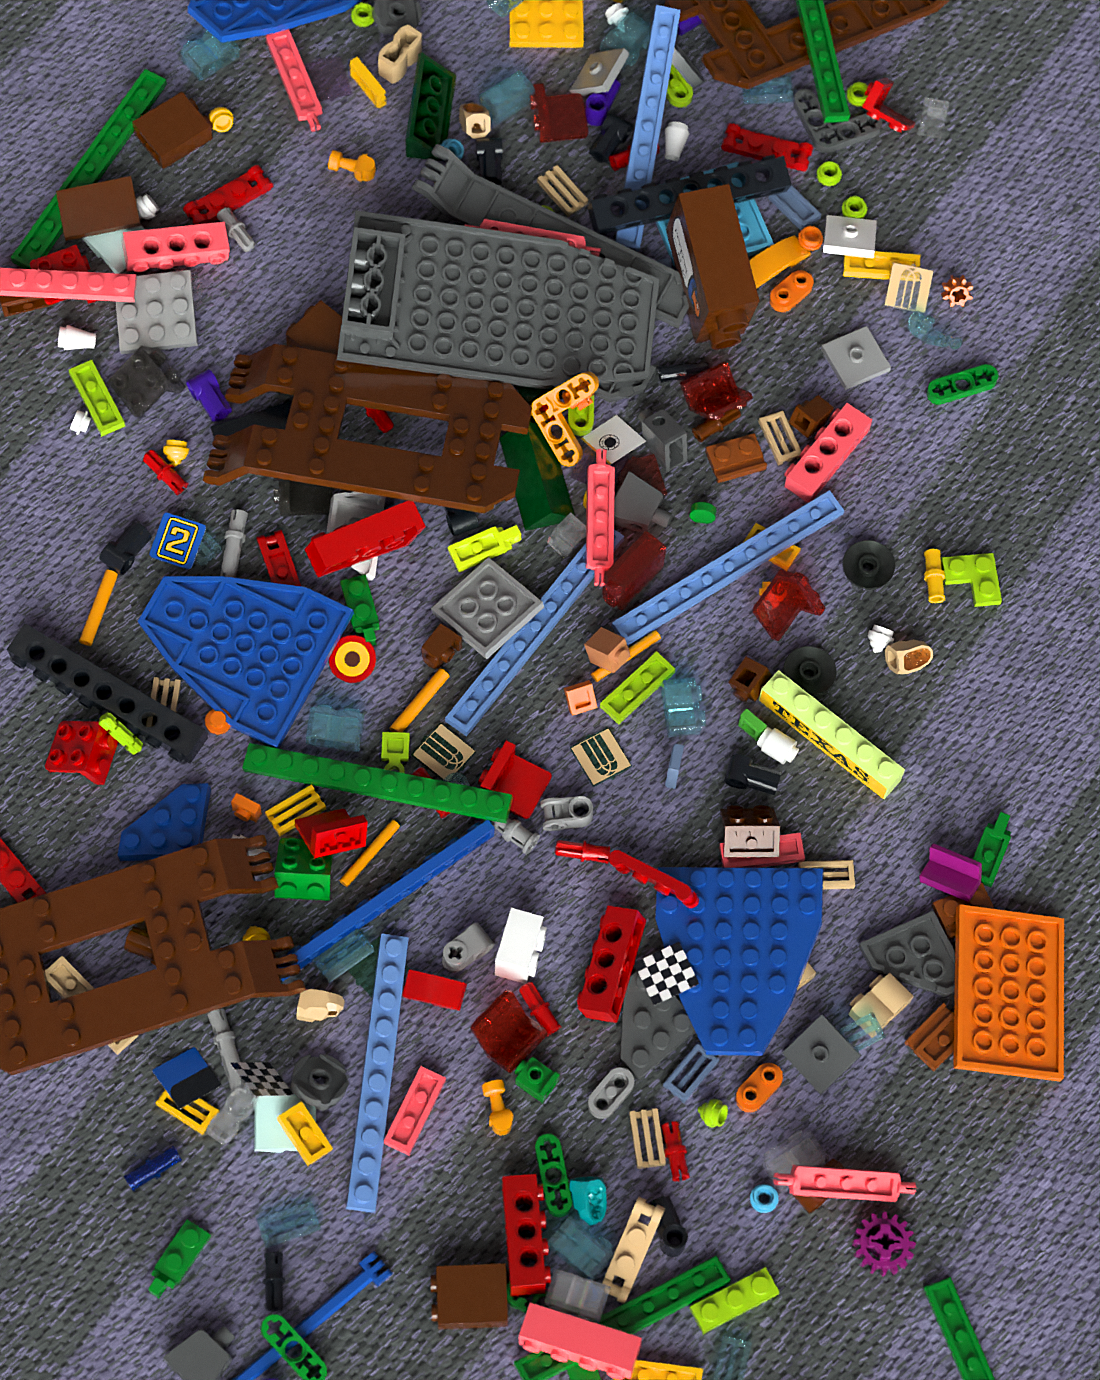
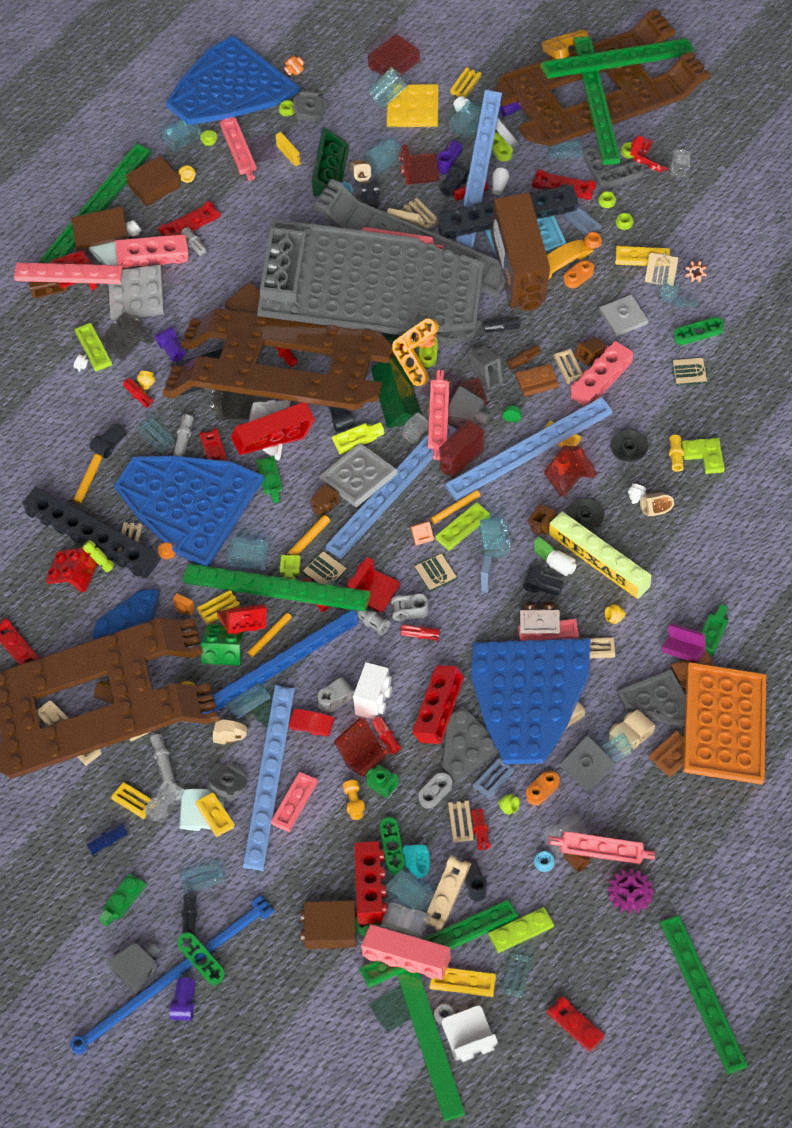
camera: 10 degrees right, 10 degrees down
(75, 338) = (80, 310): white cone -> none
(177, 540) = (144, 435): sticker -> none
(186, 1077) = (133, 780): sticker -> none
(250, 59) = (208, 137): none -> lime plate
(262, 1079) = (186, 778): sticker -> none
(352, 659) = (262, 510): sticker -> none
(362, 167) = (282, 201): light orange leg -> none
(399, 54) = (310, 130): tan brick -> none
(543, 198) = (407, 216): none -> tan tile
(599, 72) = (448, 138): light grey plate -> none
(607, 650) = (441, 501): nougat brick -> none
(615, 438) = (452, 367): white sticker -> none
(663, 883) = (475, 648): red plate -> none
(666, 973) = (476, 709): sticker -> none
(714, 392) = (520, 336): clear red bracket -> none
(850, 236) = (620, 238): white plate -> none
(852, 824) = (614, 614): none -> yellow plate
(950, 447) = (689, 371): none -> piece

